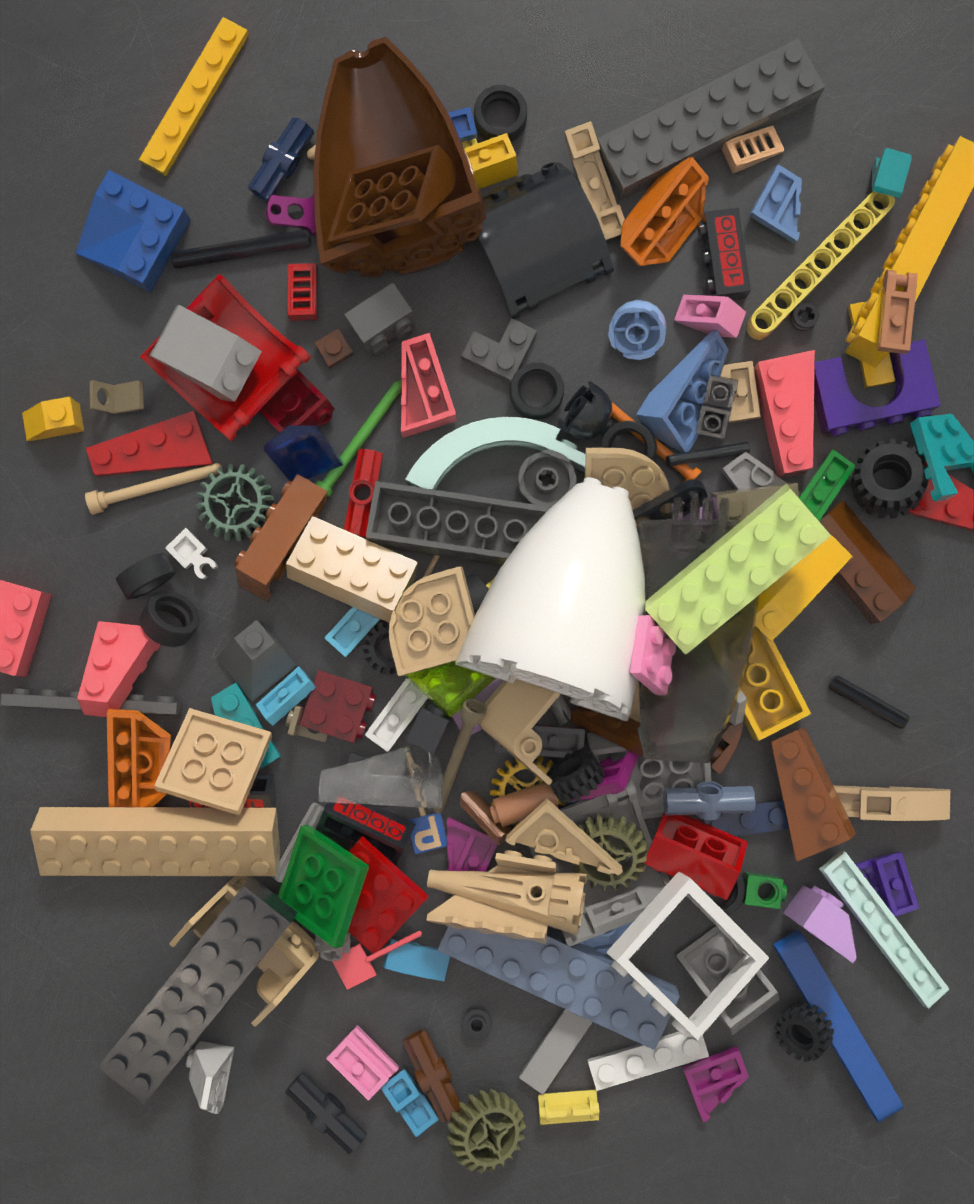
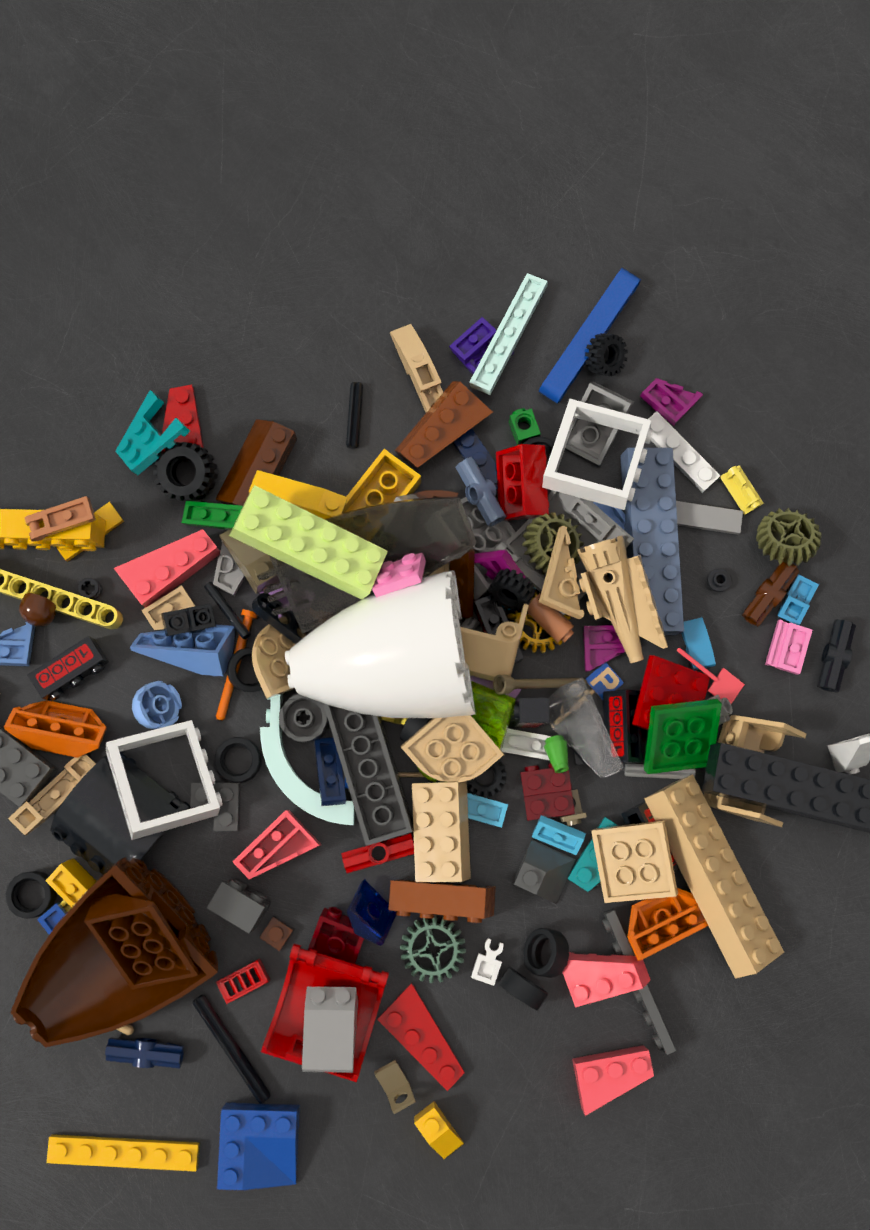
camera: 115 degrees left, 5 degrees down
(99, 501) = (482, 1057): tan piece -> none
(282, 219) = (172, 1011): magenta piece -> none
(361, 437) = (335, 877): bright green bar -> none
(372, 737) = (557, 753): none -> bright green cone
(472, 479) = (329, 772): none -> dark blue plate
(480, 812) = (571, 647): nougat slope -> none
(533, 347) = (171, 821): none -> white window
(588, 413) = (237, 713): black cylinder -> none
(710, 314) = (119, 657): bright pink slope -> none
(806, 248) = (37, 609): none -> reddish brown hair
(823, 917) = (523, 375): lavender slope -> none
(840, 410) = (112, 484): dark purple arch -> none

